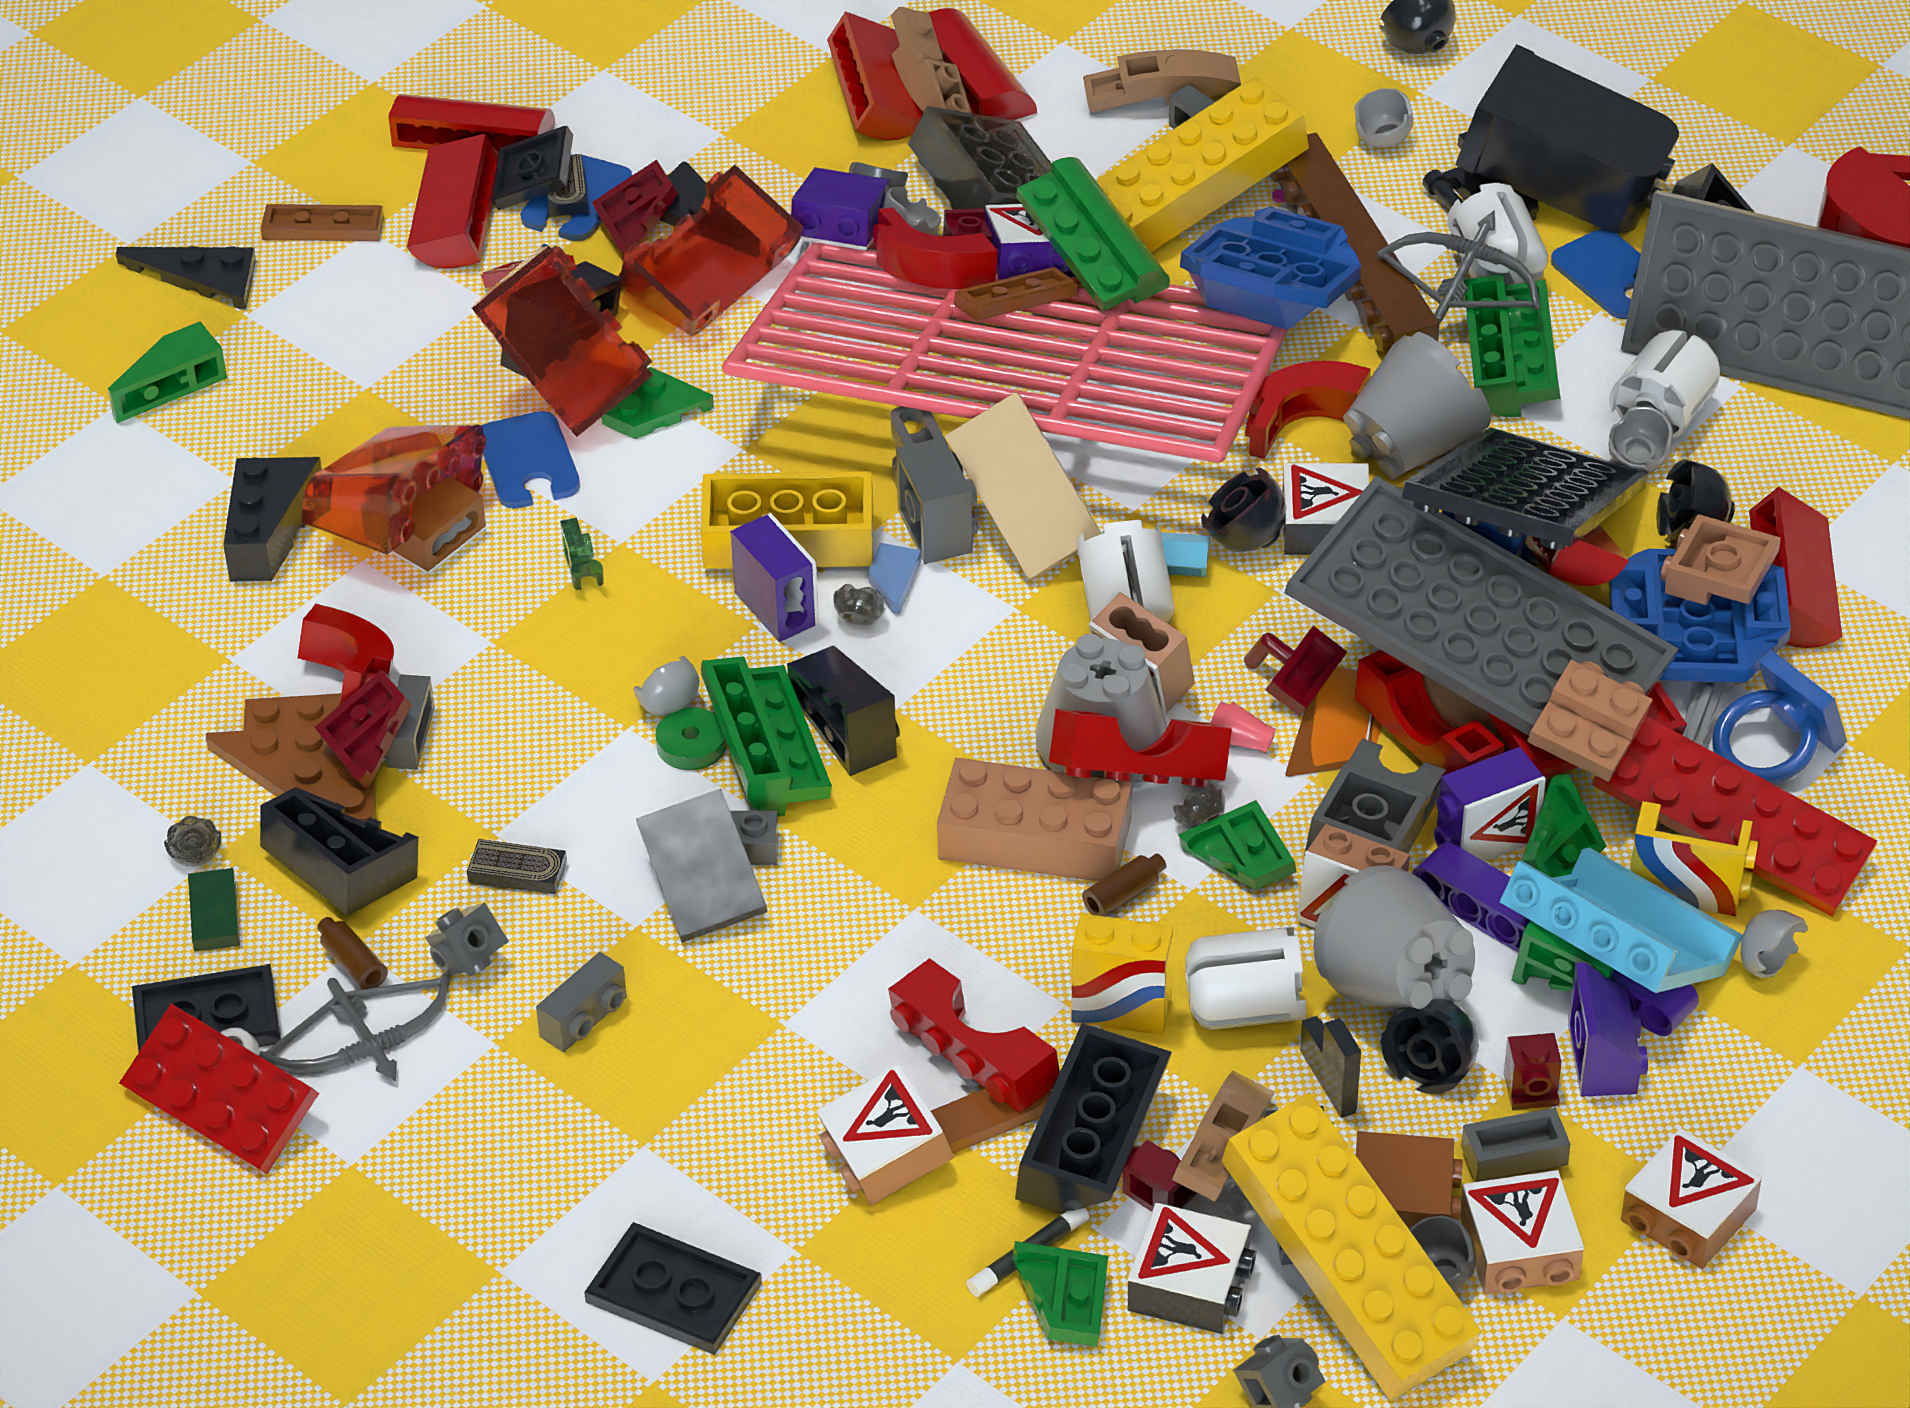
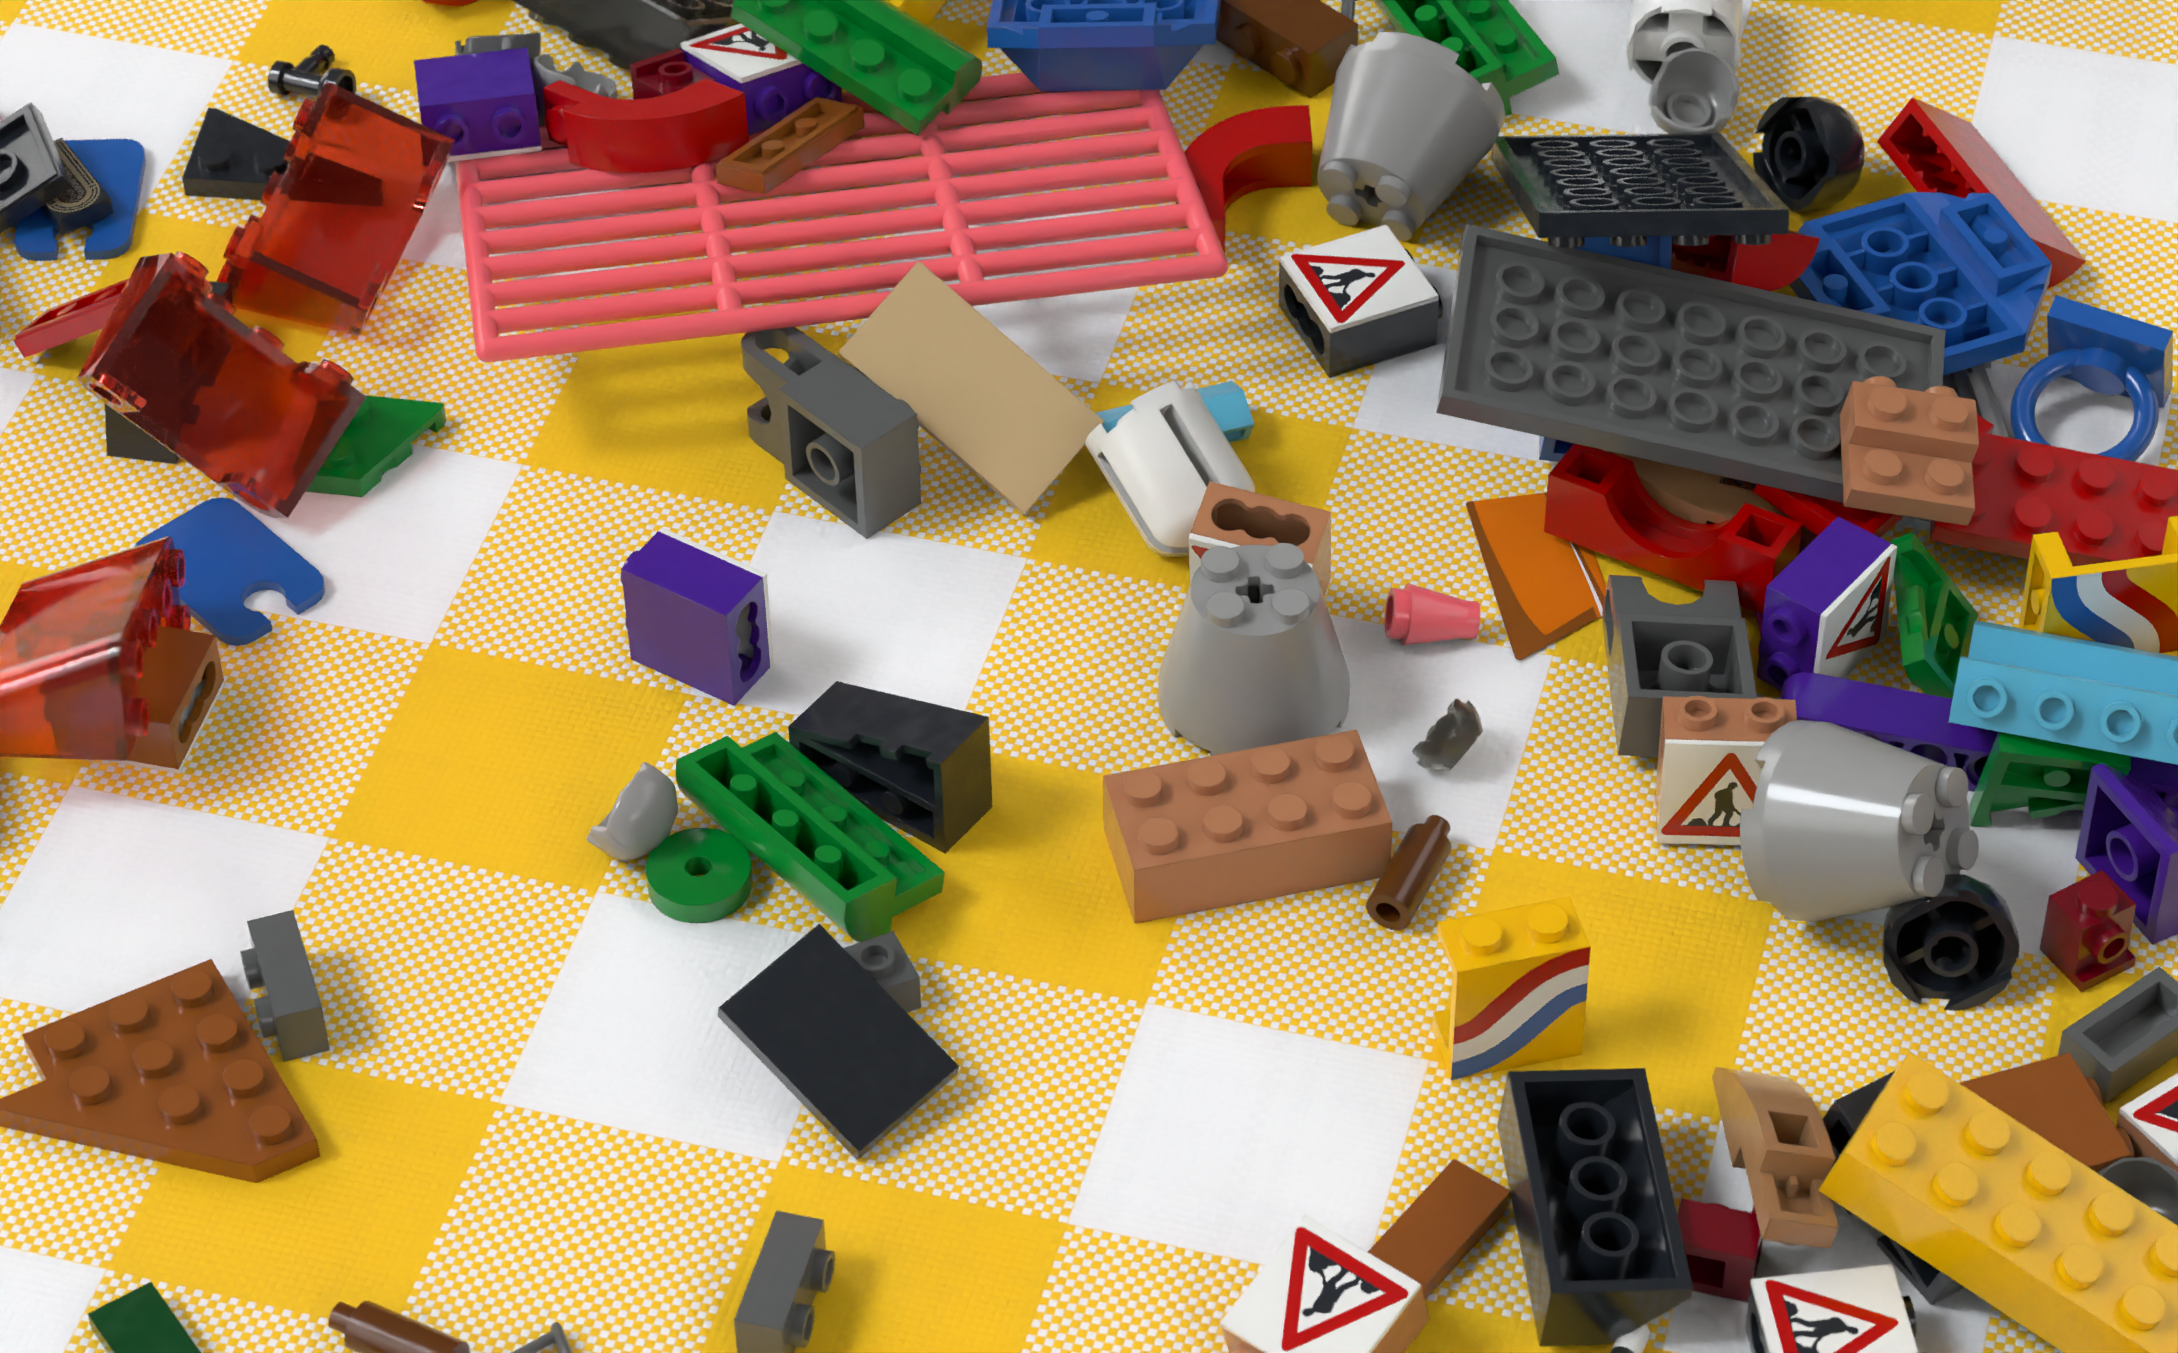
camera: 25 degrees left, 0 degrees up
(193, 841) = (66, 1264): clear smoke plate -> none
(336, 853) = (295, 1205): black wedge -> none
(345, 644) = (150, 910): red arch -> none
(366, 726) = (246, 1010): dark red wing -> none
(465, 940) = (567, 1262): dark grey brick -> none
(517, 866) = (563, 1135): tile -> none
(579, 554) = (386, 675): clear green plate -> none
(636, 205) = (184, 185): dark red wing -> none
(766, 170) = (306, 76): none -> black piece
(821, 510) = (714, 496): yellow brick -> none
(858, 605) = (824, 619): clear smoke plate -> none
(894, 572) = (838, 563): medium blue tile -> none
(1010, 1064) = (1432, 1164): red arch -> none
(1094, 742) = (1299, 690): red arch -> none
(1241, 846) = (1531, 769): green wing -> none
(1245, 978) = (1670, 937): white cylinder -> none
(1246, 512) = (1266, 333): black cylinder -> none
(1302, 670) = (1464, 511): dark red plate -> none
(1333, 1060) = (1849, 1015): black tile -> none
(1718, 561) = (1917, 207): nougat plate -> none

